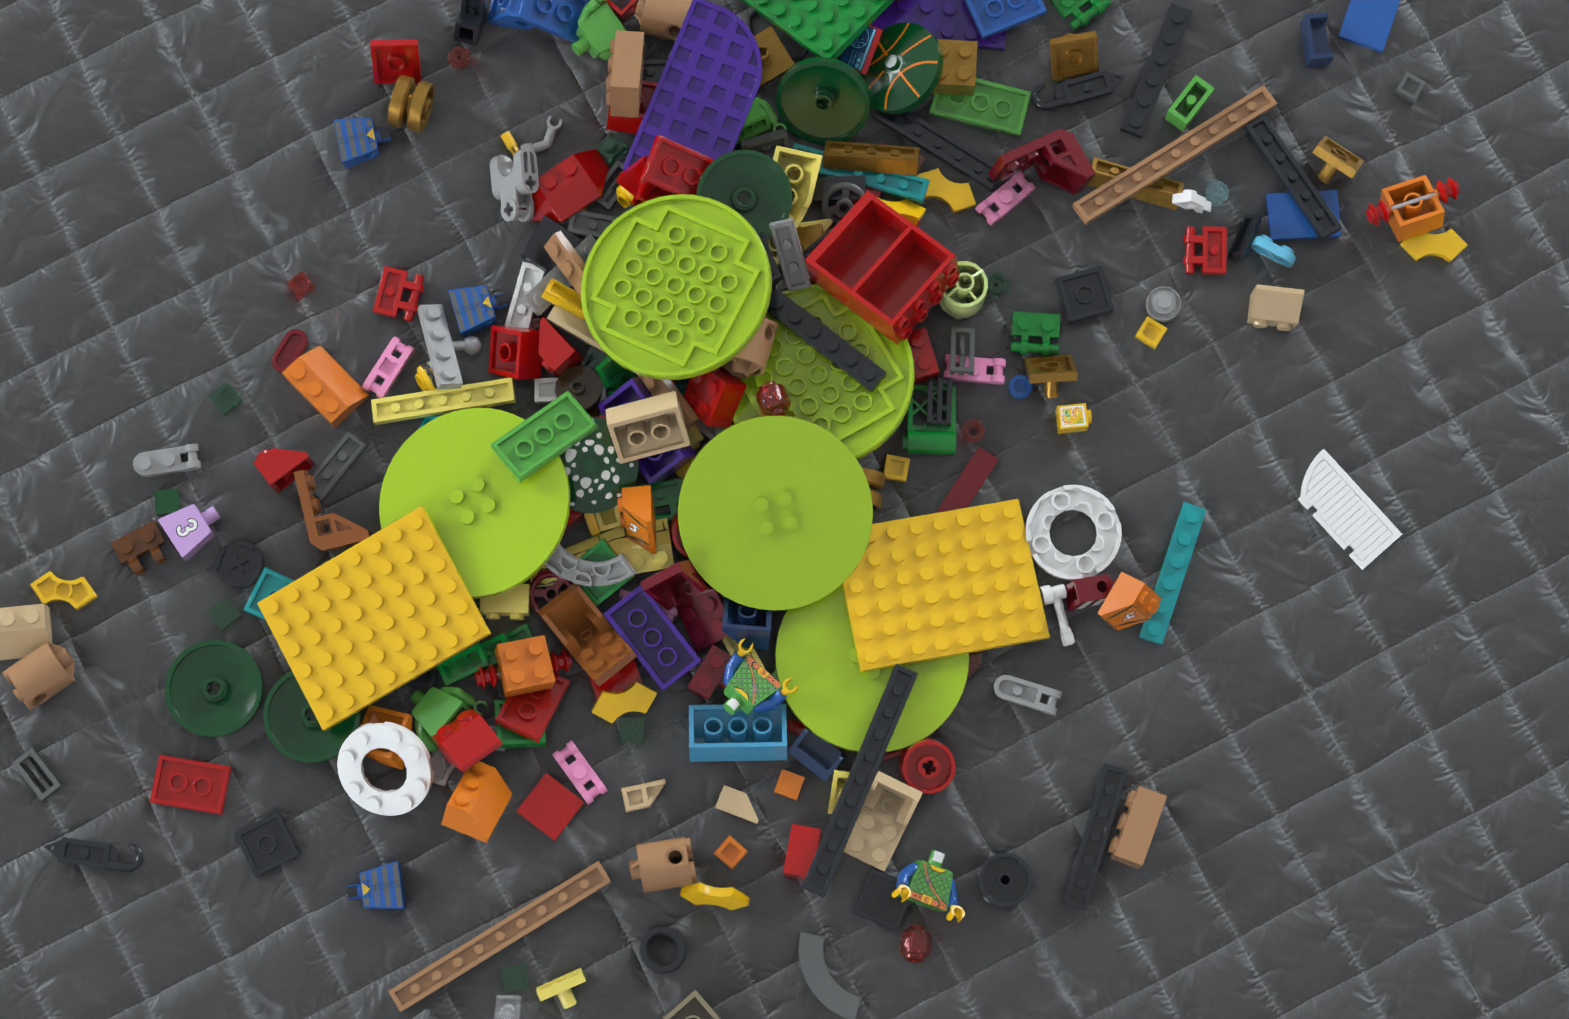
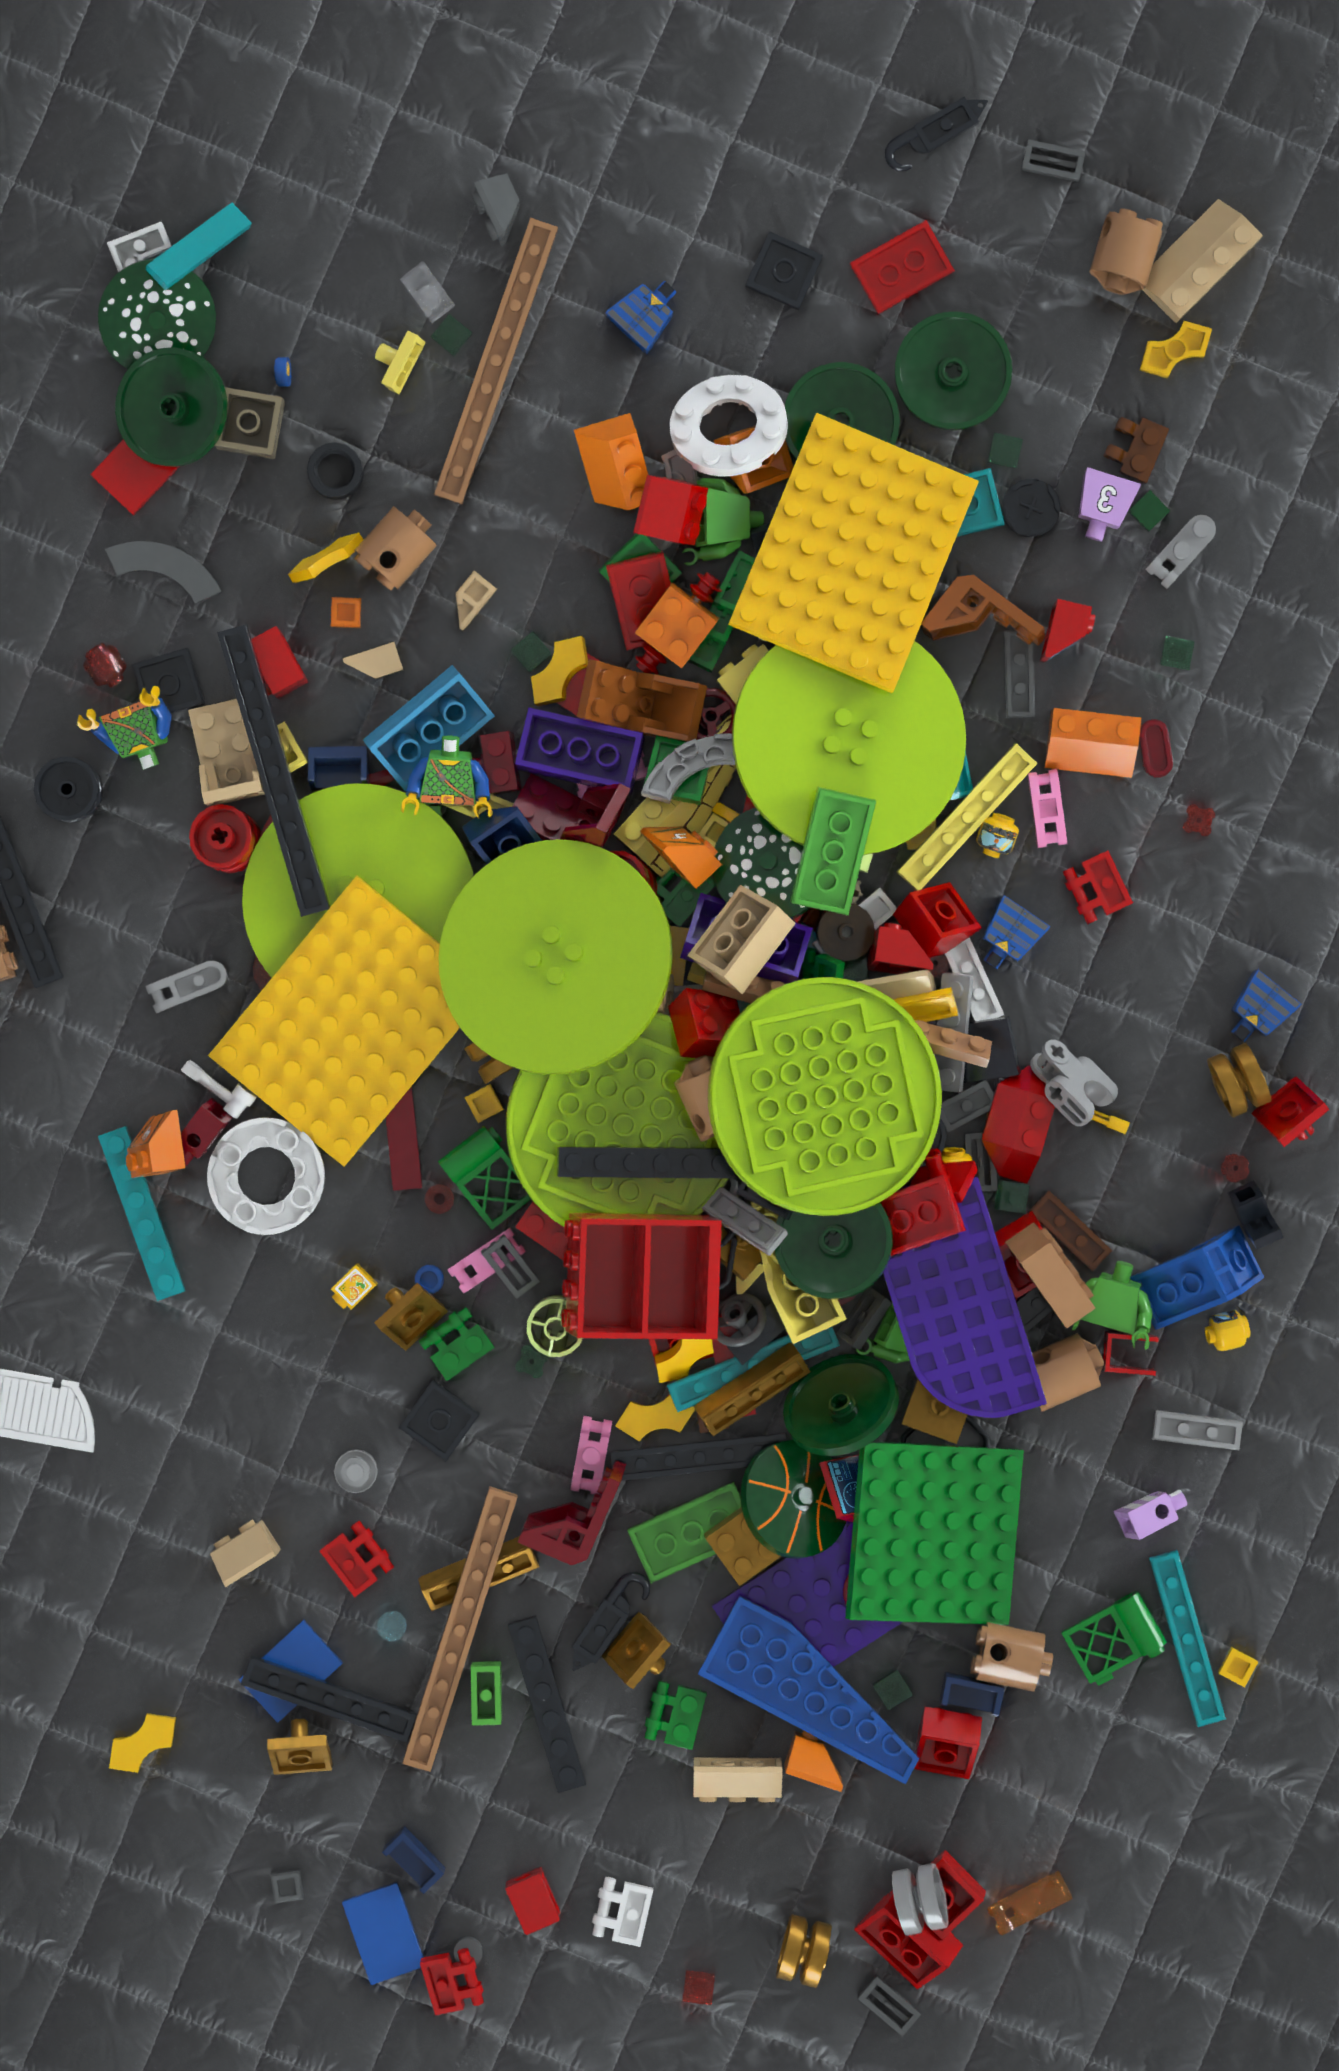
camera: 145 degrees right, 10 degrees up
(442, 348) = (1011, 867): light grey plate -> none
(548, 139) = (1085, 1139): light grey arm -> none
(550, 807) = (548, 518): red tile -> none
(579, 772) = (547, 572): bright pink plate -> none
(592, 100) = (1070, 1230): none -> reddish brown tile
(773, 399) = (643, 1062): clear red head -> none
(789, 784) = (342, 719): orange tile -> none
(940, 383) = (507, 1219): black tile -> none
(1151, 332) = (346, 1434): yellow tile -> none
(1191, 200) = (410, 1595): white plate -> none
(1245, 236) = (329, 1603): black tile -> none
(1281, 255) = (303, 1609): medium azure plate -> none
(1413, 206) = (188, 1761): orange brick -> none

